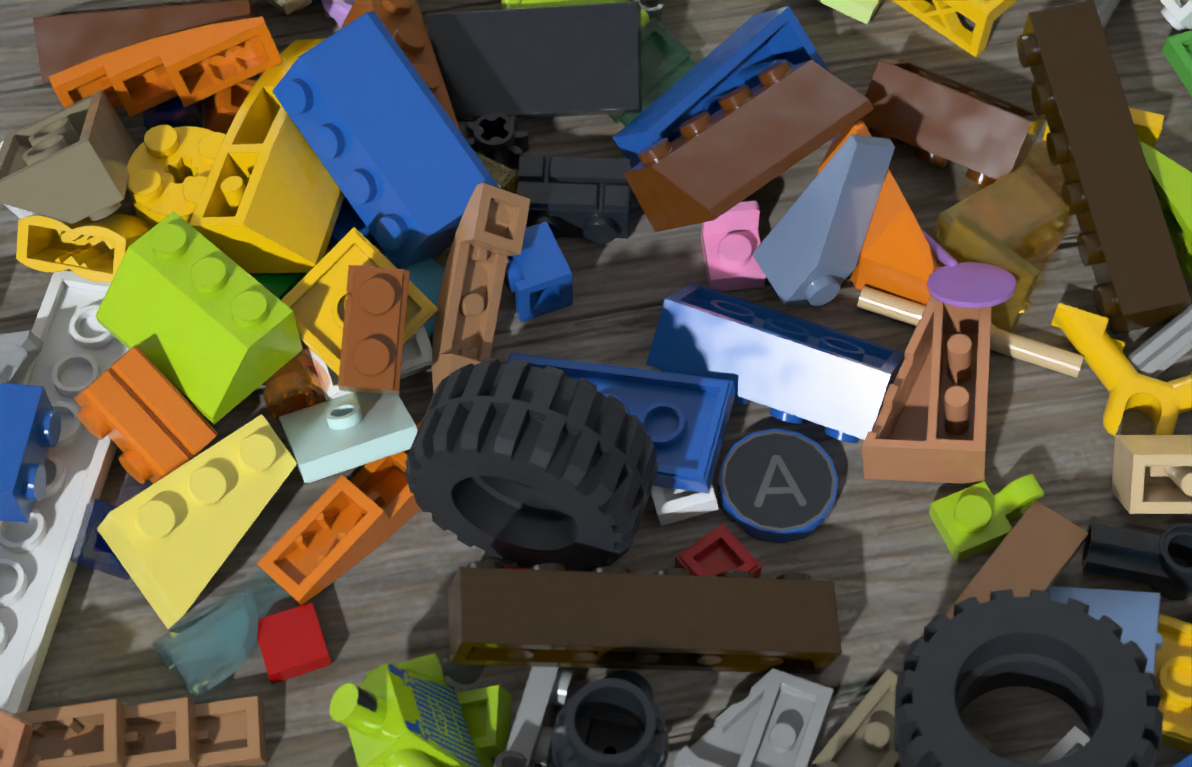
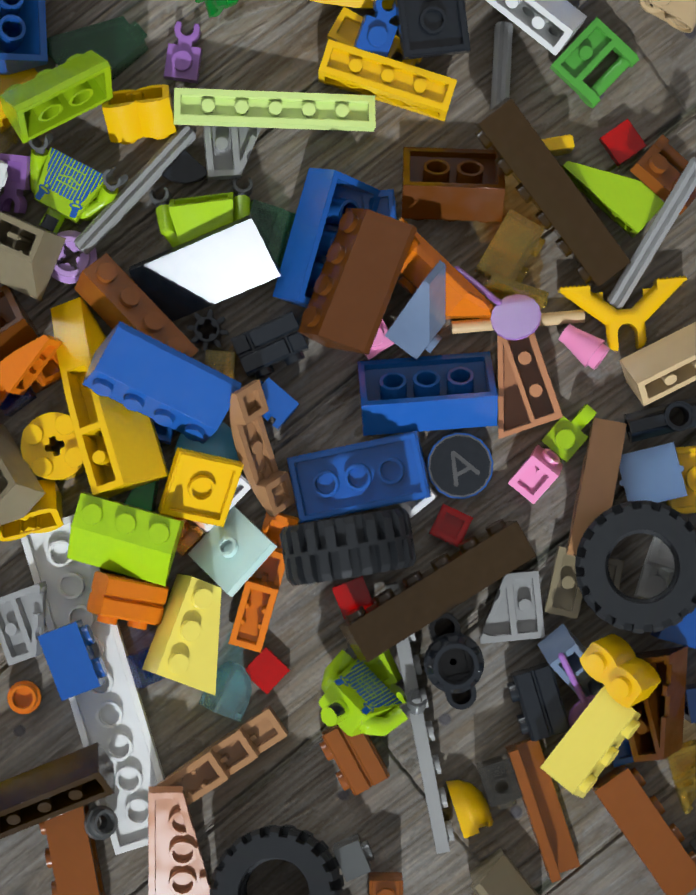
camera: 30 degrees left, 30 degrees up
(373, 330) = (223, 504): dark orange brick -> none
(899, 545) = (536, 473): none -> bright pink bracket
(1066, 404) = (584, 346): none -> bright pink cone

